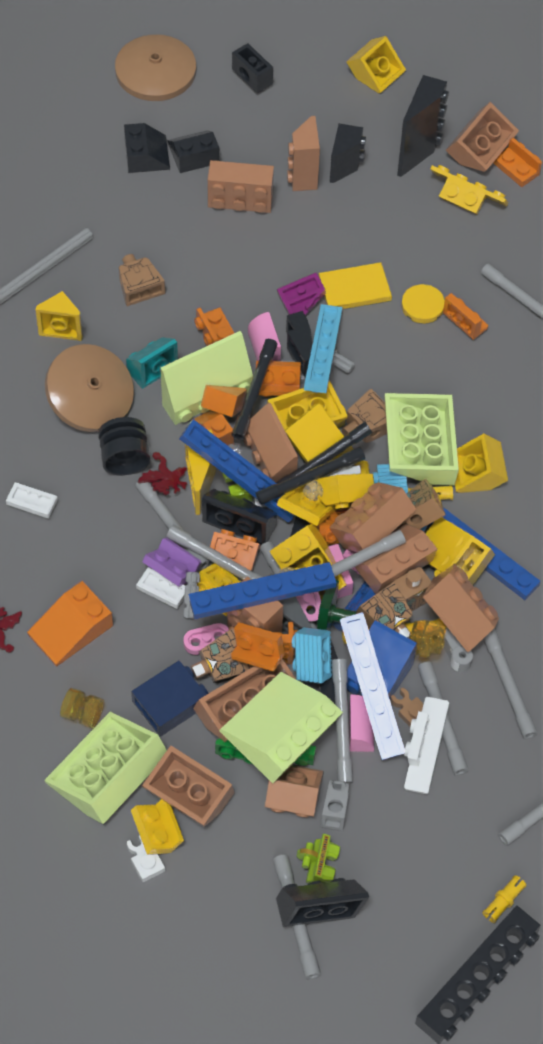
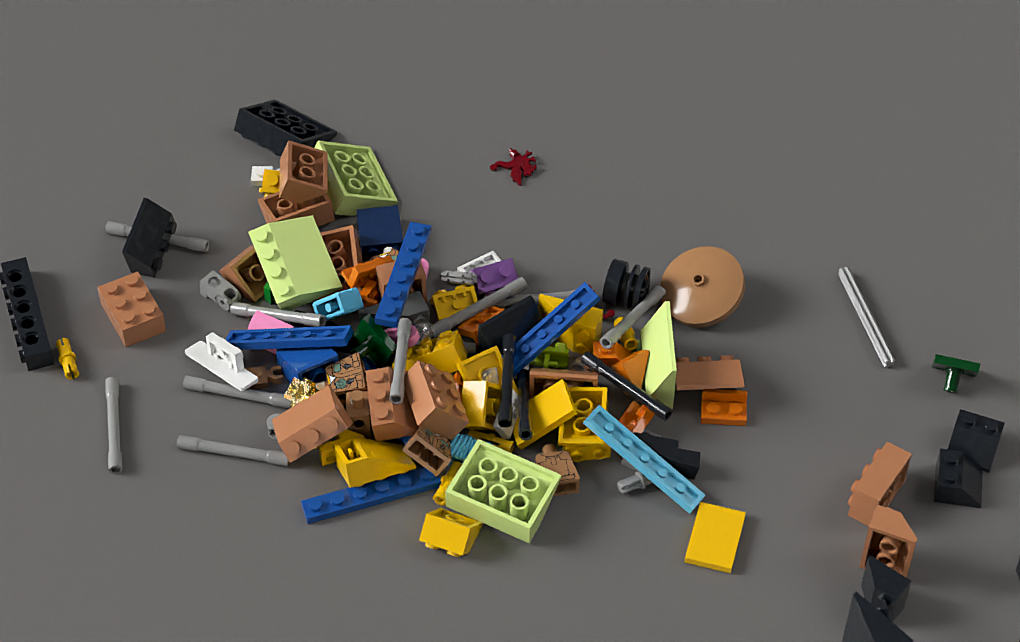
camera: 120 degrees right, 10 degrees down
(31, 500) = (617, 221): white plate -> none
(59, 318) = (789, 295): yellow slope -> none
(69, 875) = (275, 123): none -> black slope
(71, 624) = (487, 206): orange slope -> none
(74, 704) = (407, 180): clear yellow wheel -> none
(76, 177) = (955, 368): none -> dark green tile
(139, 280) = (810, 373): medium nougat torso -> none
(147, 363) = (708, 336): teal slope -> none
(155, 785) = (303, 173): none -> nougat slope
(177, 429) = (628, 337): none -> yellow pin
(193, 330) = (708, 373): none -> nougat slope
(203, 419) = (615, 333): none -> light grey piece
(261, 329) = (689, 436): bright pink brick -> none
(302, 294) = (722, 484): magenta wing -> none
(315, 856) = (188, 260): lime hips -> none
(411, 871) = (131, 309): none -> nougat brick
(423, 303) = (663, 582): yellow tile -> none
(463, 316) = (622, 600): orange bracket -> none

